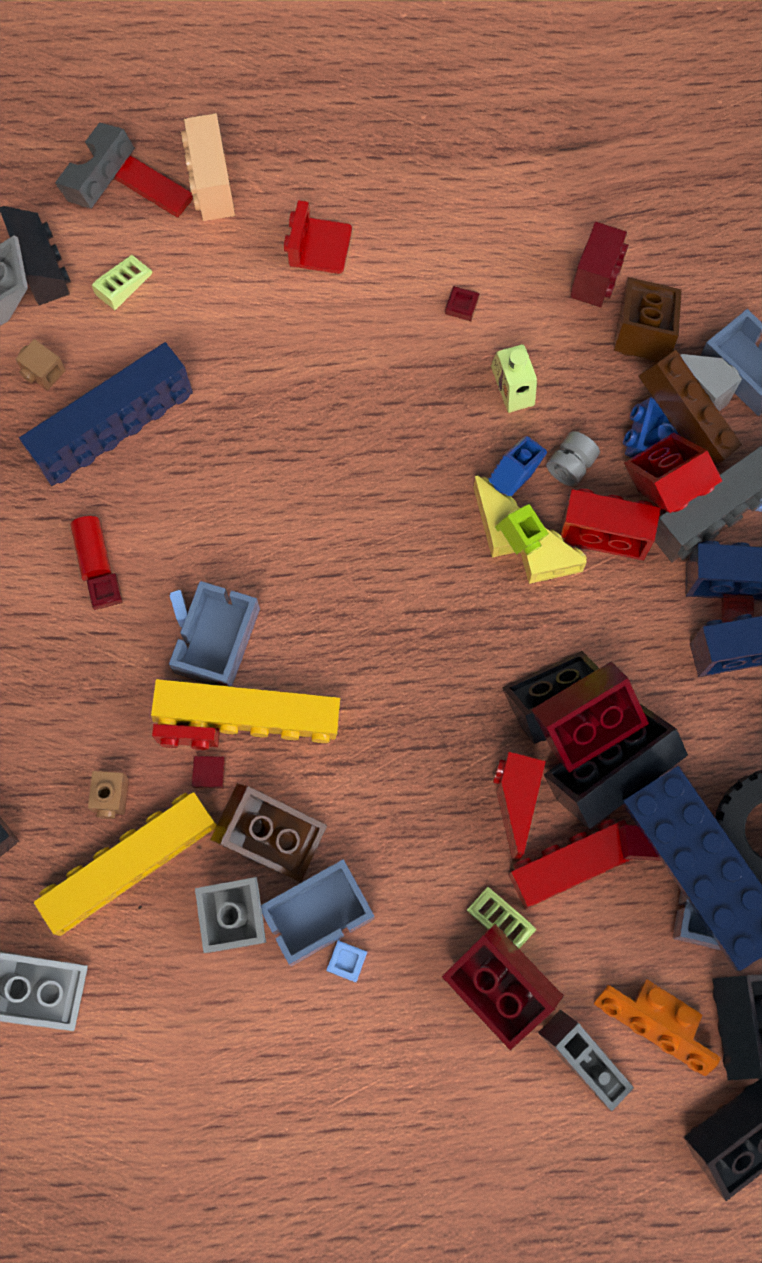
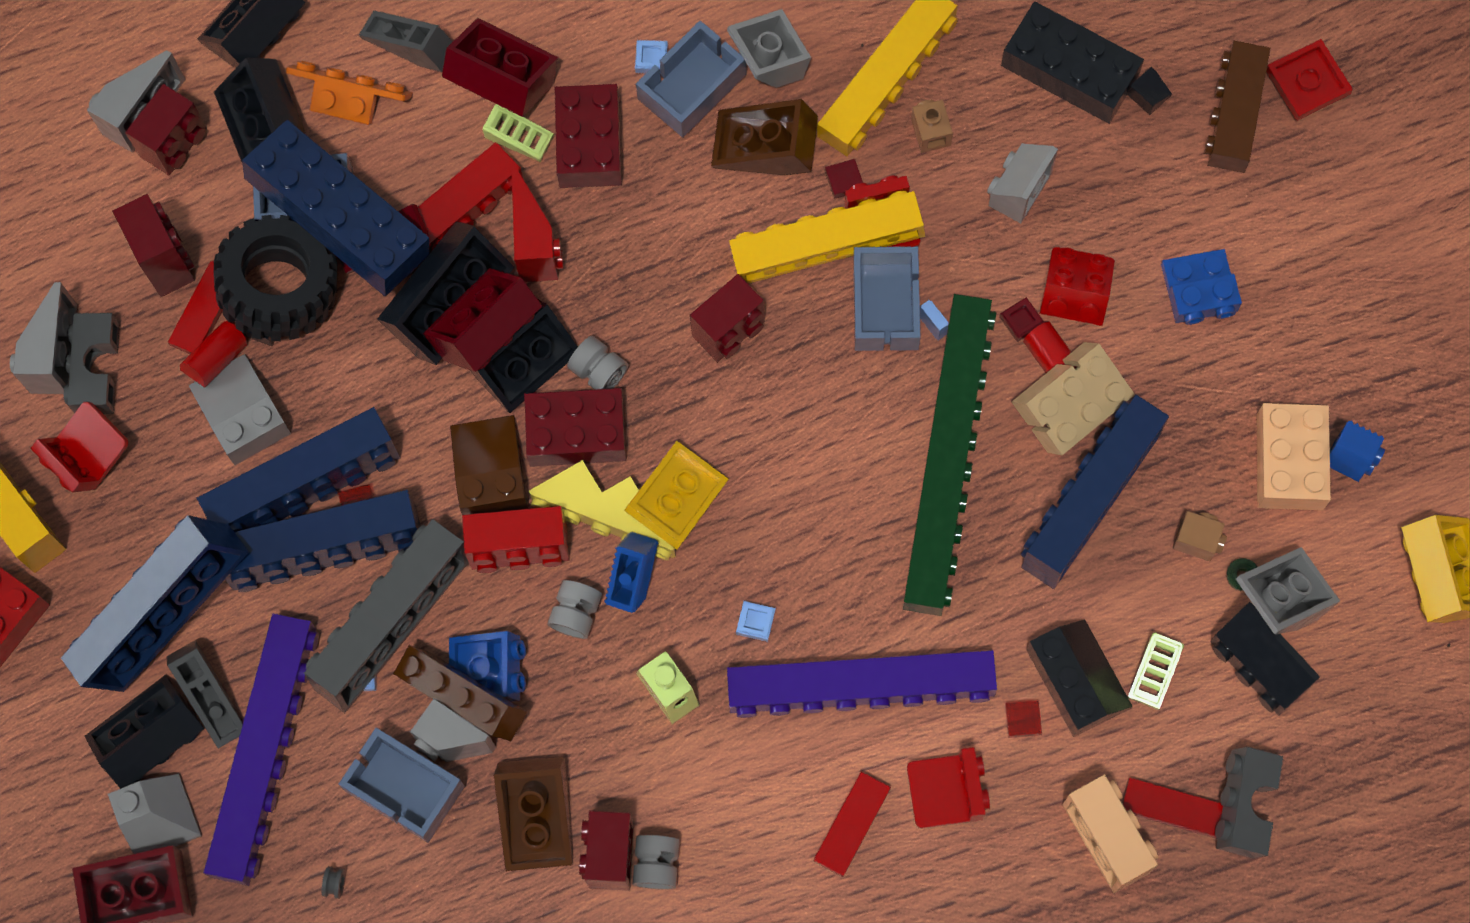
camera: 165 degrees right, 0 degrees up
(17, 323) = (1238, 565): none -> clear green plate
(41, 602) = (1078, 286): none -> red bracket
(47, 706) = (1022, 180): none -> light grey slope
(101, 490) = (1073, 399): none -> tan piece
(183, 291) = (1078, 676): none -> black slope
(213, 494) = (947, 456): none -> dark green brick
(239, 279) = (1023, 719): none -> clear red tile
(356, 336) = (861, 682): none -> dark purple brick
(363, 658) = (728, 319): none -> dark red brick
(400, 244) = (852, 824): none -> red tile
(424, 413) = (755, 621): none -> light blue tile
(435, 889) = (588, 136): none -> dark red brick
(458, 519) = (676, 495): none -> yellow plate
(462, 303) = (755, 770): dark red tile -> none
(490, 657) = (593, 362): none -> light grey wheel
(523, 530) = (613, 501): lime brick -> none
(529, 611) = (575, 427): none -> dark red brick
(562, 253) = (656, 862): none -> light grey wheel
(615, 605) = (488, 466): none -> reddish brown slope
(673, 472) = (462, 596): red brick -> none

